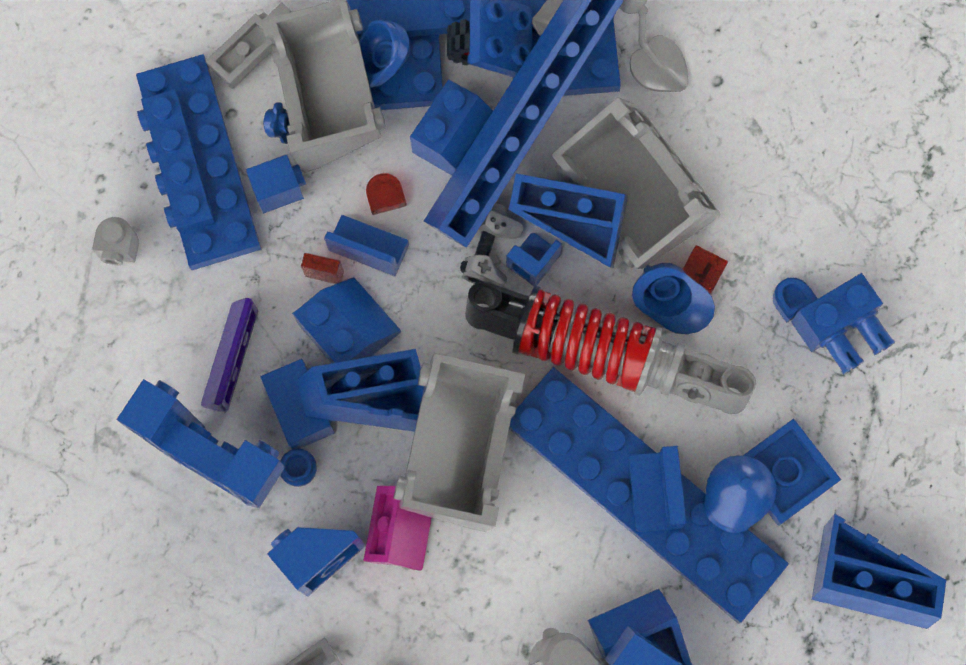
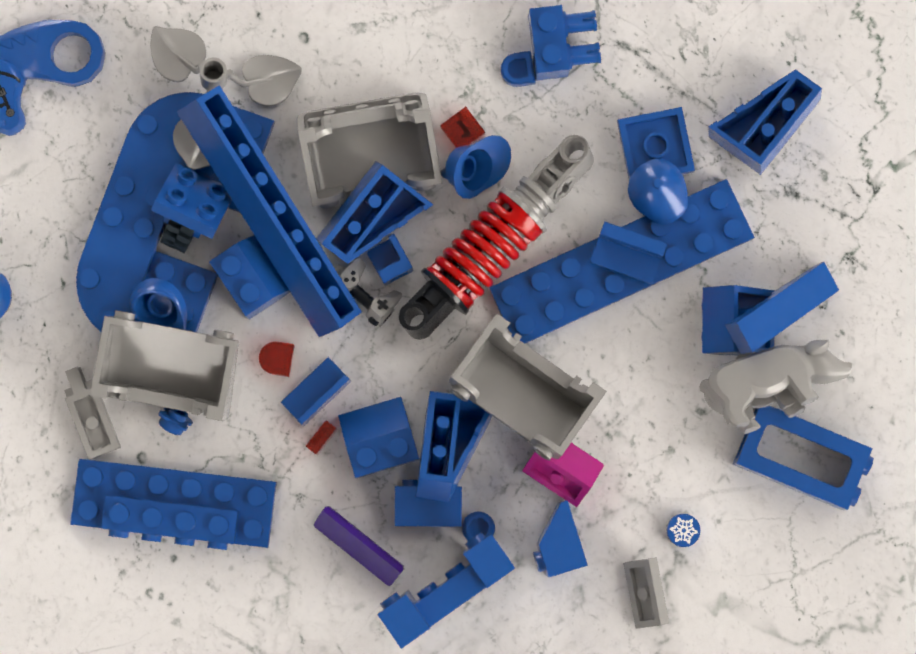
camera: 70 degrees left, 10 degrees up
(115, 241) = (218, 600): light grey plate -> none
(276, 183) = (230, 444): blue brick -> none

